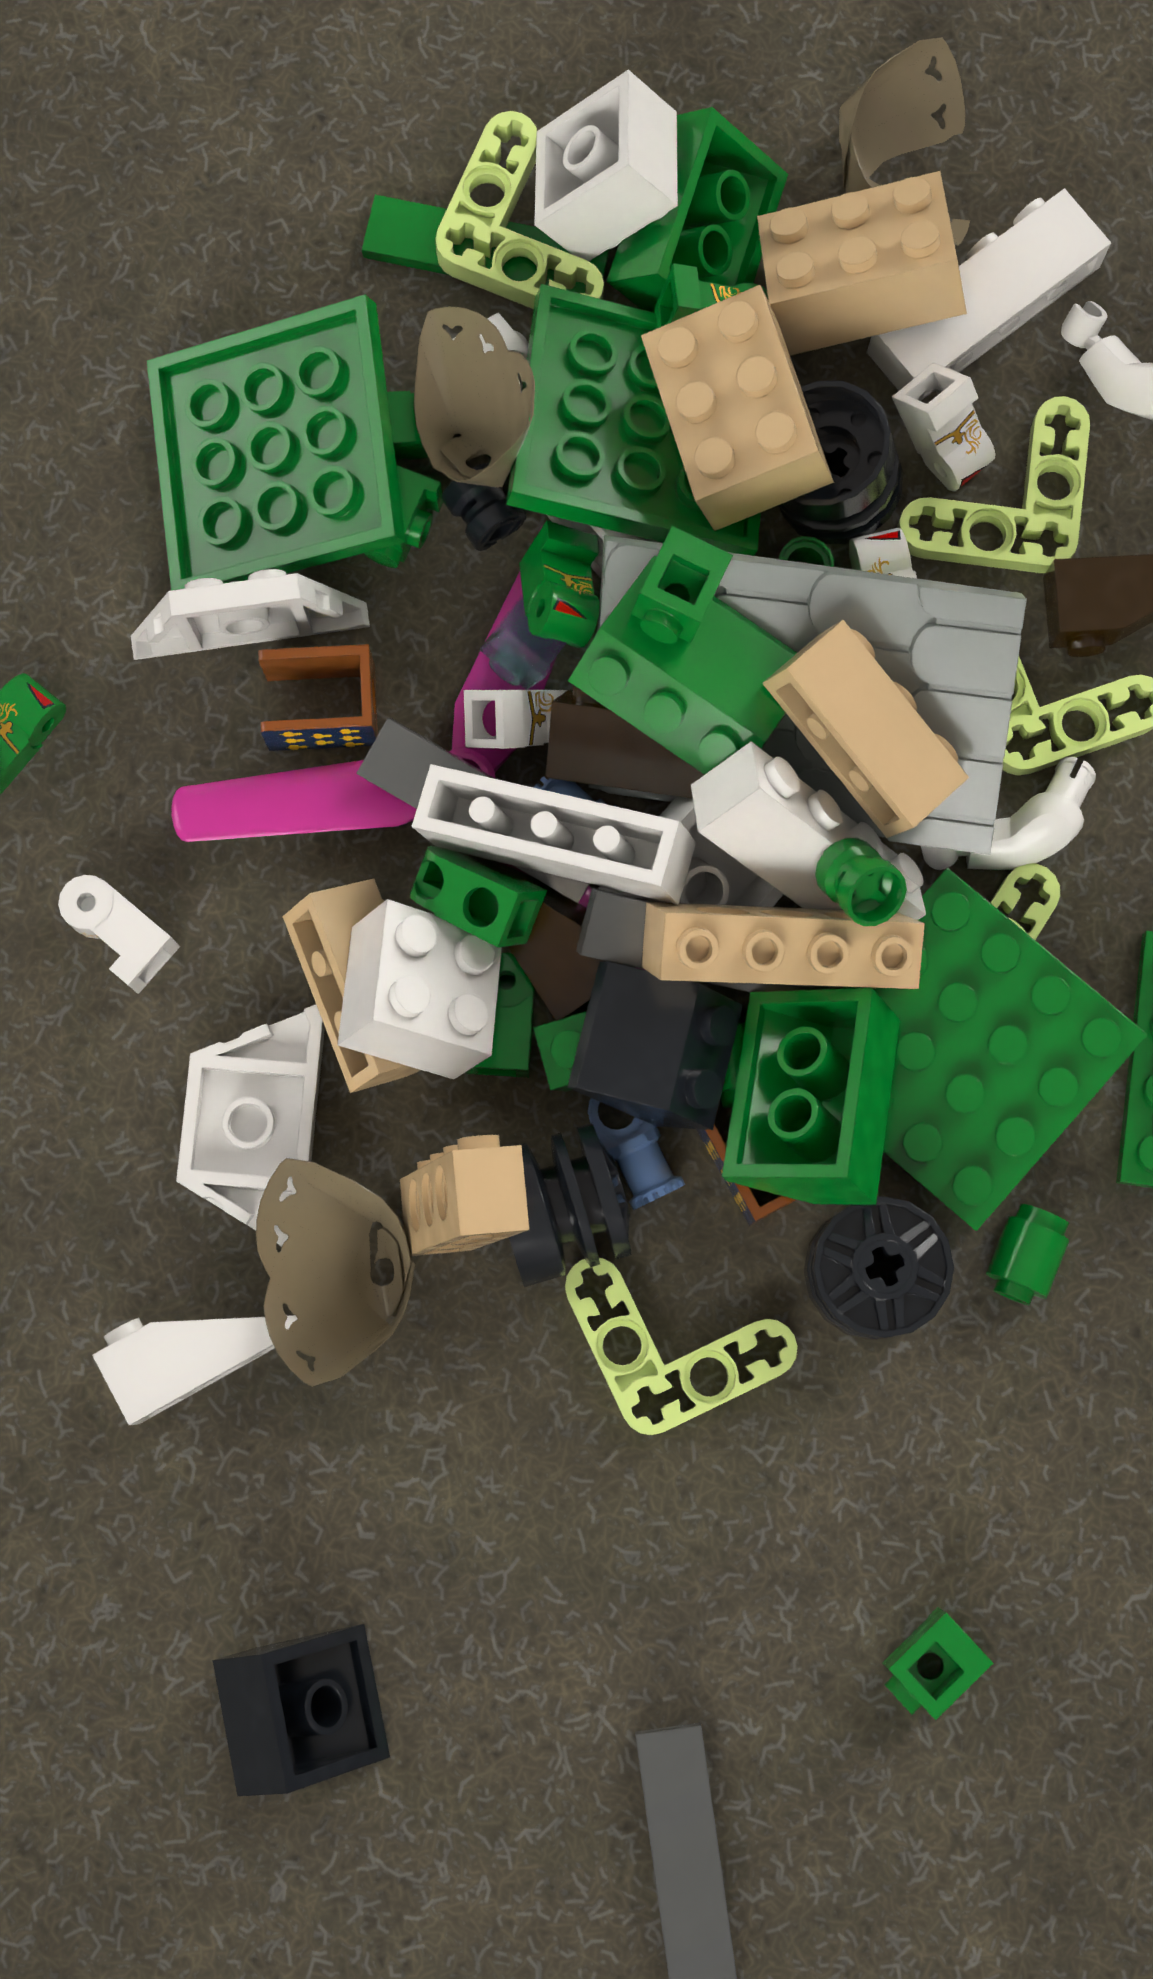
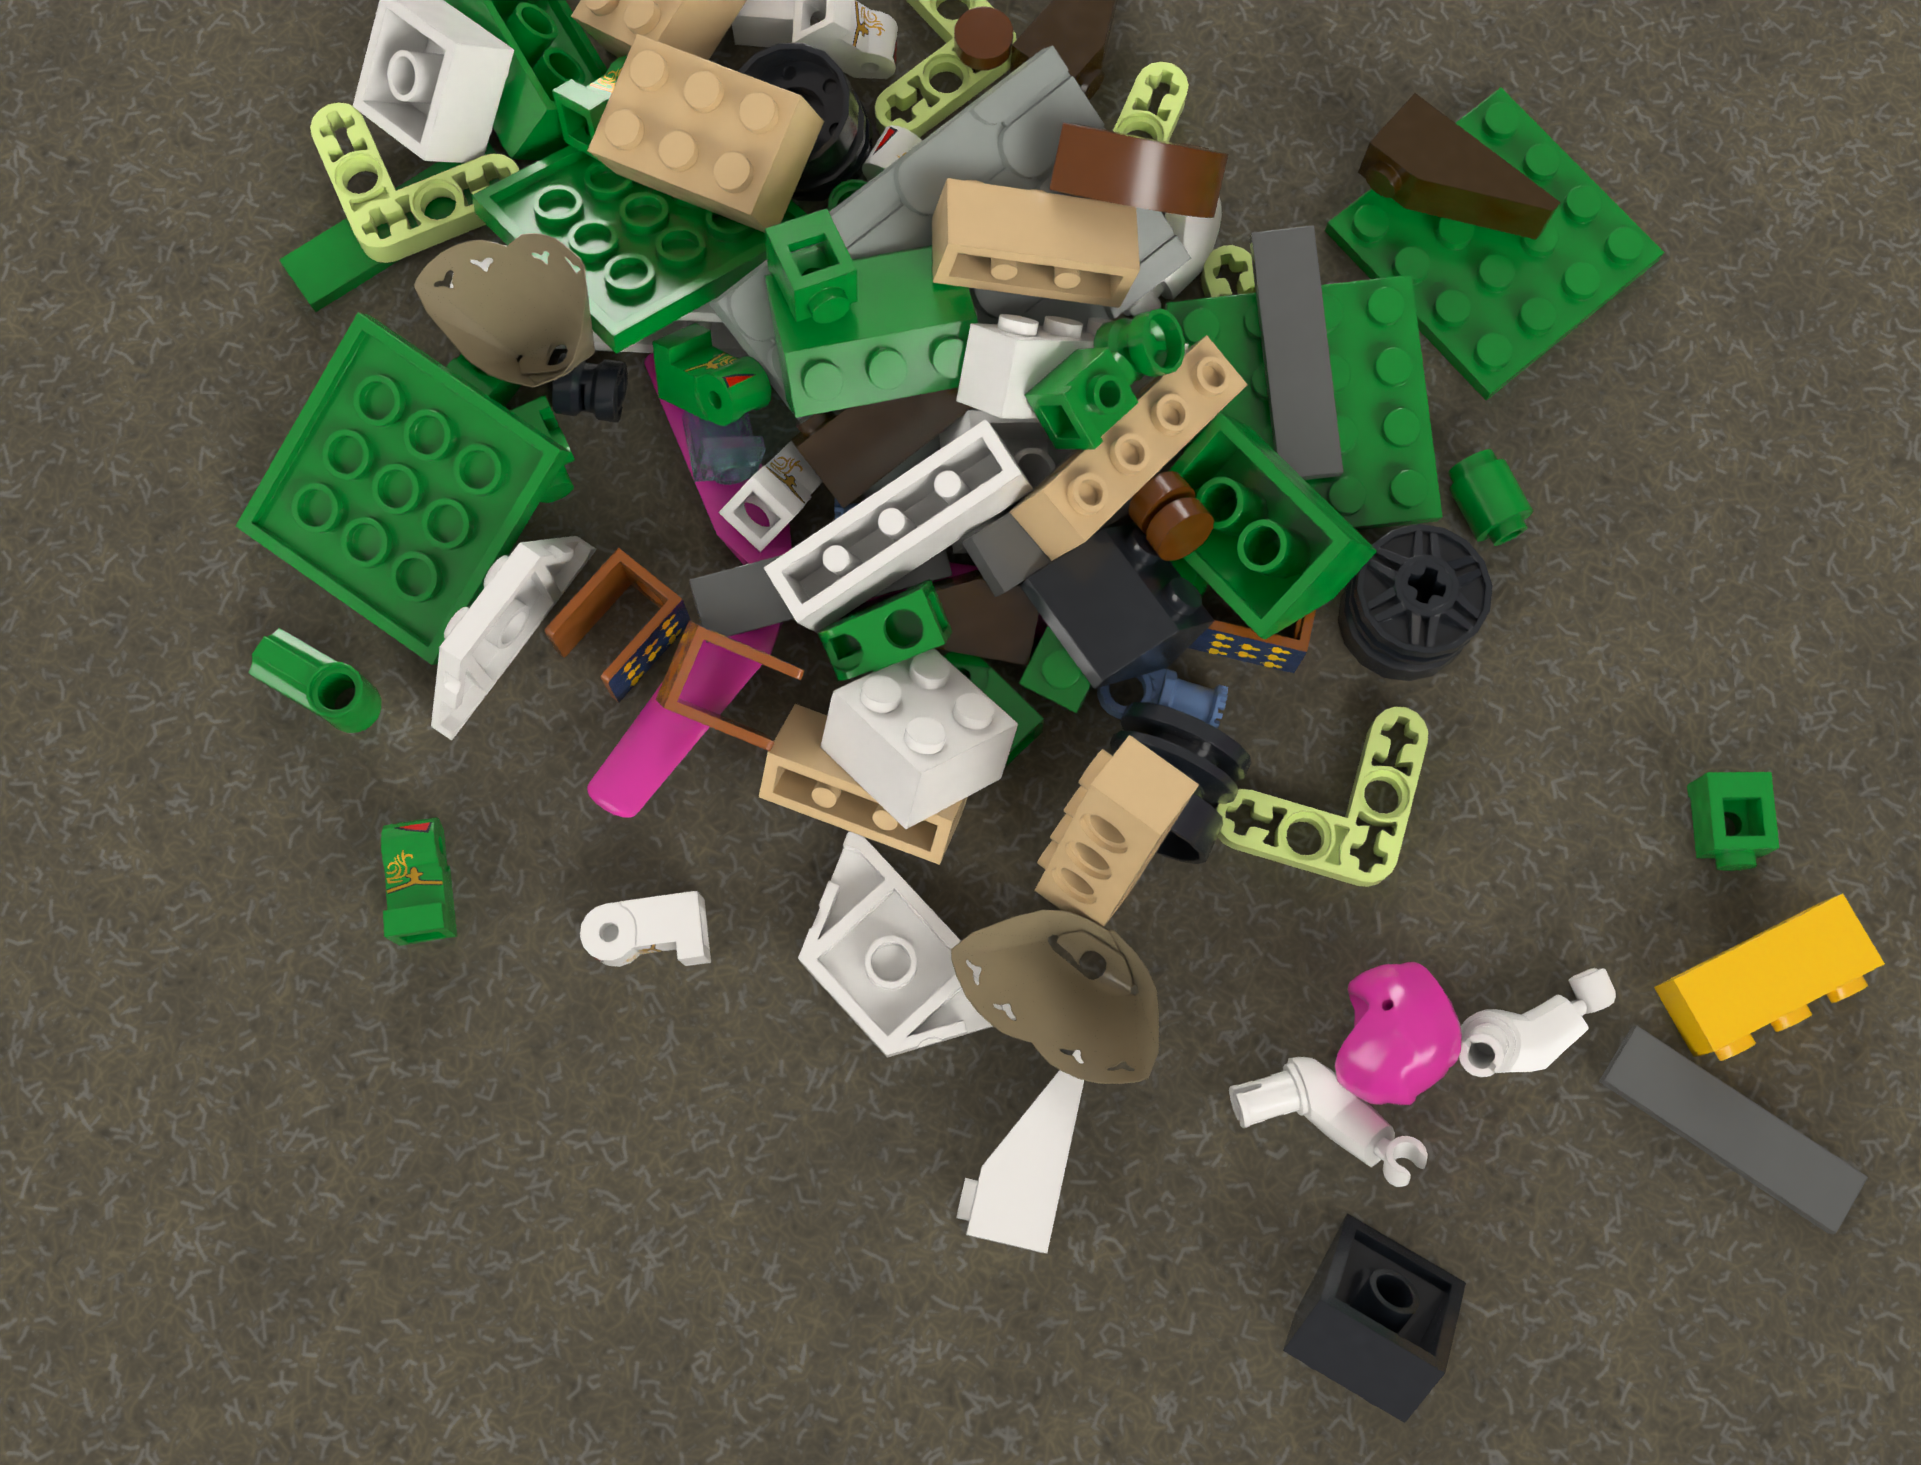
camera: 50 degrees left, 5 degrees down
(85, 525) = (315, 681): none -> green piece
(299, 831) = (681, 666): none -> dark orange piece
(429, 1537) = (1340, 1115): none -> white arm
(518, 1550) = (1400, 1036): none -> dark pink piece
(614, 1650) = (1531, 1041): none -> white arm
(751, 1039) = (1179, 528): none -> reddish brown tile
(760, 867) = (1083, 397): none -> green brick
(760, 1008) = (1157, 494): none -> reddish brown tile
(830, 1799) = (1770, 979): none -> yellow brick
(993, 1001) = (1296, 351): none -> dark grey tile
(999, 757) = (1138, 171): none -> reddish brown arch
(1043, 532) = (983, 38): none -> reddish brown tile

